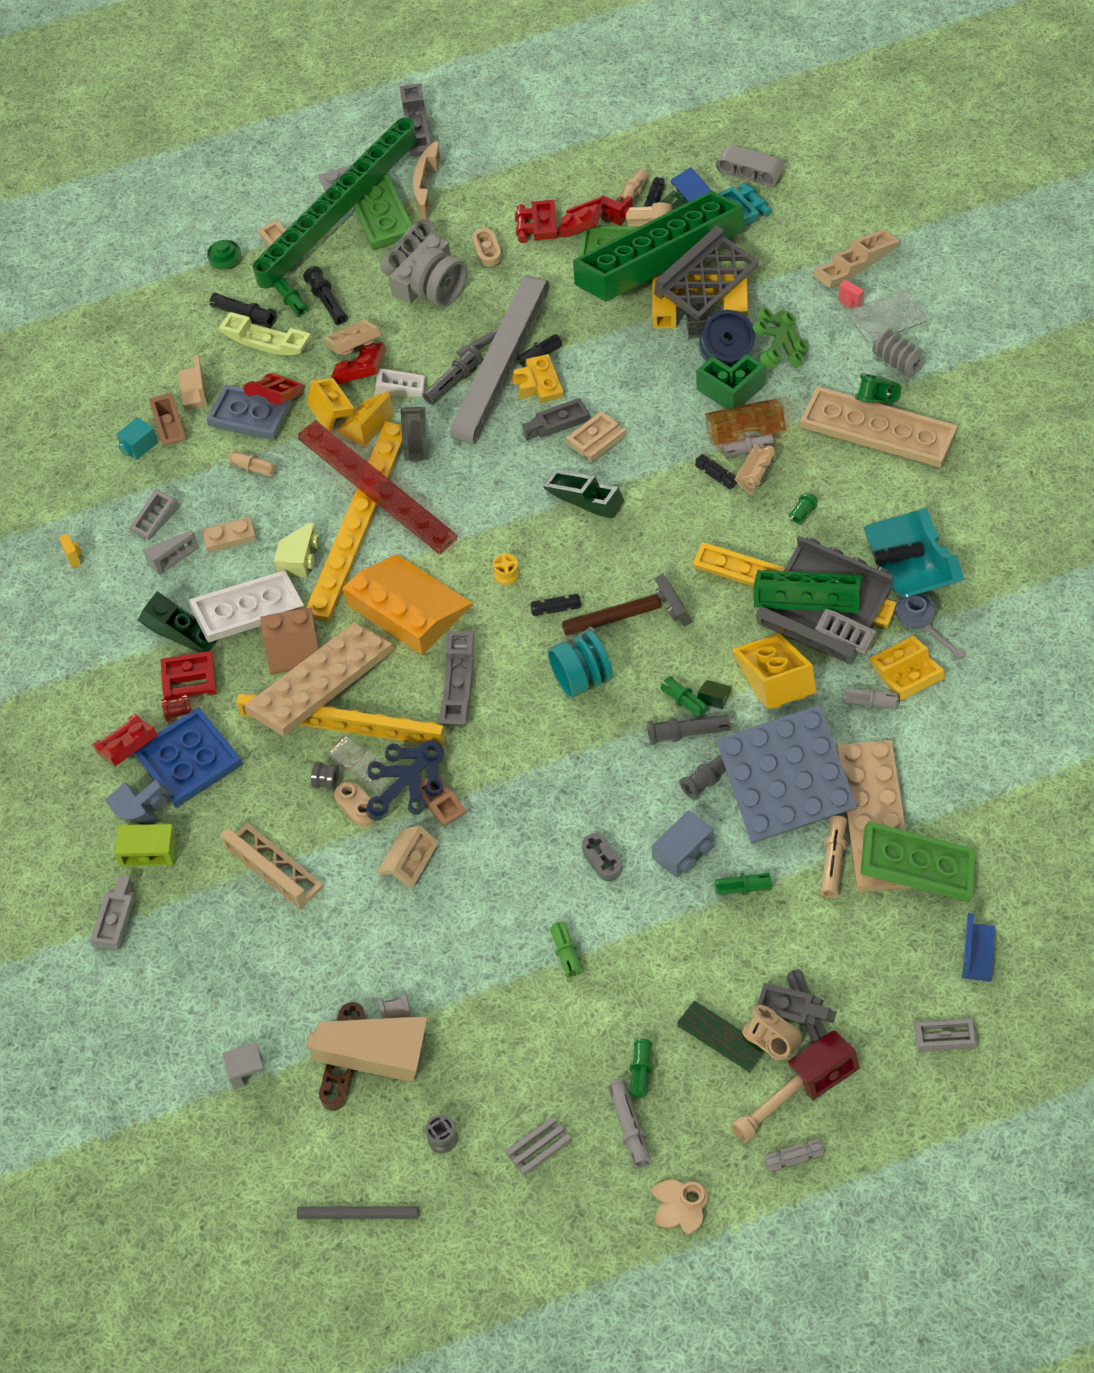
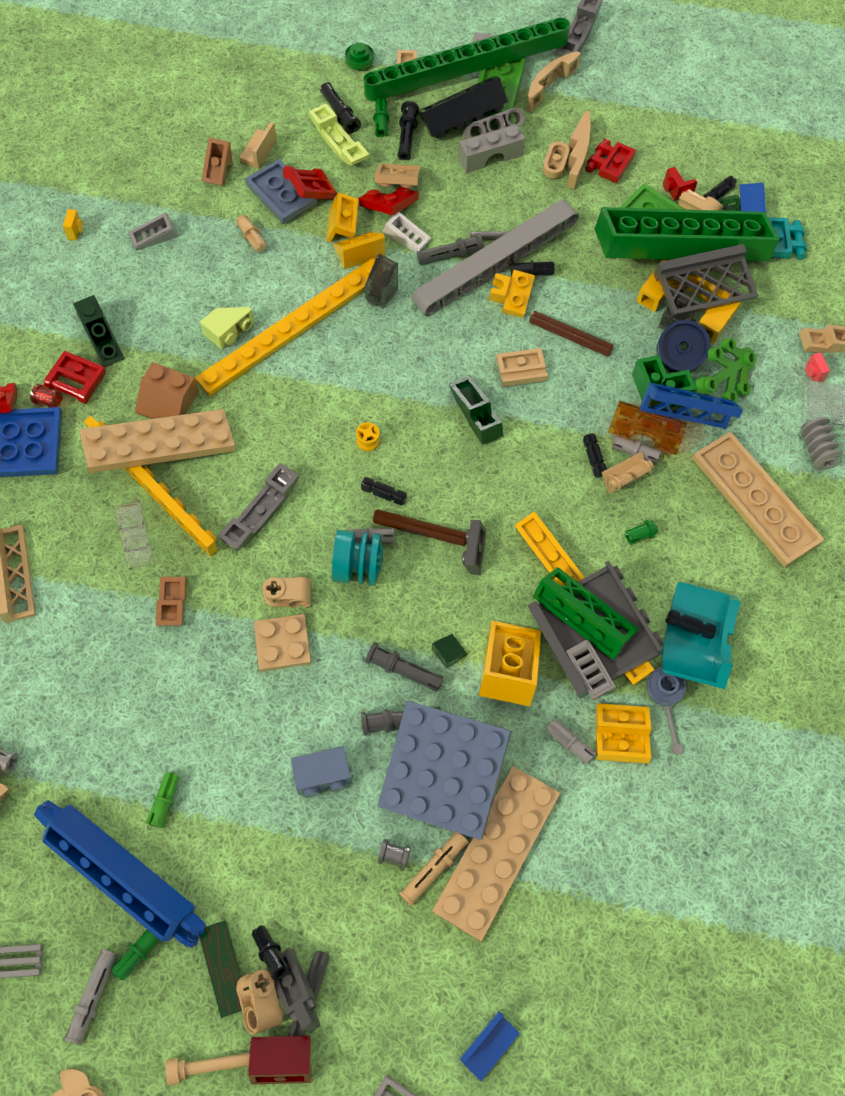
camera: 25 degrees right, 10 degrees up
(136, 438) = (185, 164): teal brick -> none
(170, 552) = (139, 269): light grey slope -> none
(228, 534) = (192, 280): tan plate -> none
(241, 605) = (146, 342): white plate -> none
(324, 776) = (102, 524): dark grey wheel -> none
(353, 803) = (110, 561): tan plate -> none
(366, 245) = (463, 106): none -> black slope
(377, 487) = (322, 309): clear red plate -> none
(405, 602) = (275, 416): light orange slope -> none
(407, 775) = (159, 566): dark blue plant -> none
(409, 855) = (111, 634): tan panel -> none
(438, 277) = (496, 163): light grey wheel -> none
(502, 225) = (578, 148): none -> tan slope
(540, 729) = (290, 593): none -> tan piece
(556, 419) = (502, 334): dark grey hinge -> none
(566, 773) = (282, 643): none -> tan plate
(576, 1019) = (119, 874): none -> blue hinge
(581, 217) = (645, 177): red plate -> none
(606, 853) = (246, 736): flat silver beam -> none
(617, 385) = (571, 333): none -> reddish brown axle
(634, 186) = (708, 173): tan pin -> none
(684, 697) = (421, 638): green axle -> none
(743, 884) = (342, 840): green axle -> none
(750, 165) = (815, 208): light grey beam -> none
(752, 995) = (270, 953): none -> black axle
(766, 378) = (689, 400): none -> blue fence
(794, 866) = (393, 854): none -> flat silver bush
(877, 389) = (778, 466): green piece -> none
(918, 861) = (495, 928): bright green plate -> none

